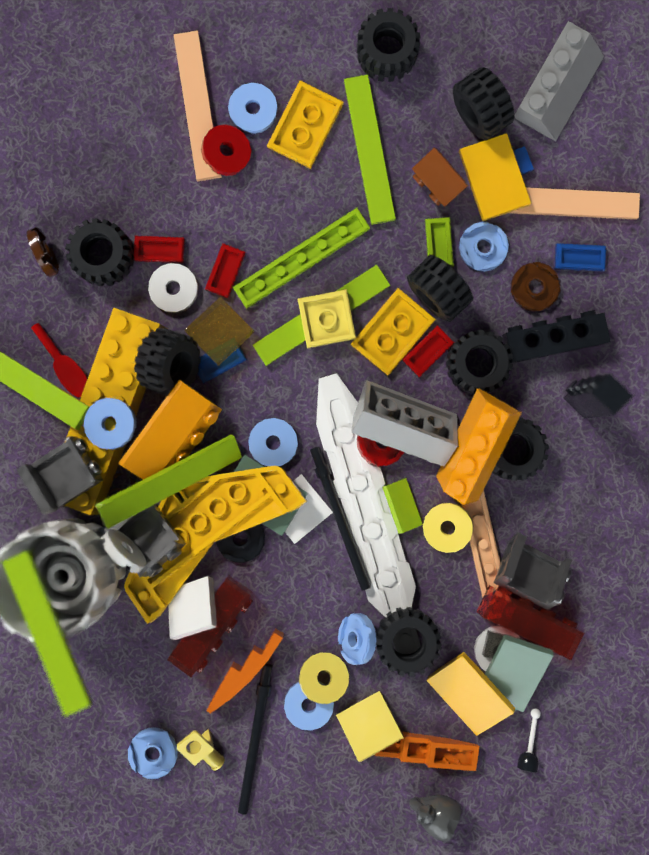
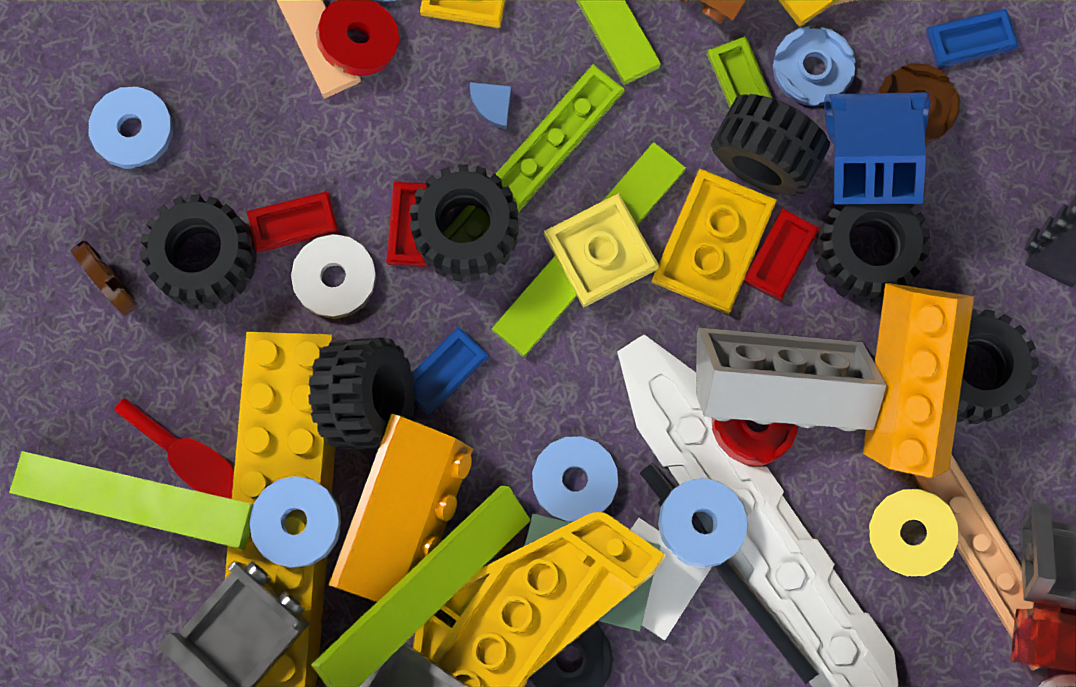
camera: 15 degrees left, 10 degrees down
(72, 155) = (120, 106): none -> light blue tile
(219, 331) = (432, 321): clear yellow tile -> none
(253, 260) = (458, 190): none -> black tyre
(292, 213) = (491, 102): none -> medium blue tile
(348, 488) = (723, 508): none -> light blue tile
(402, 505) = (825, 519): lime tile -> none
(500, 307) = (878, 146): none -> blue piece
(593, 325) = (1031, 134): black brick -> none

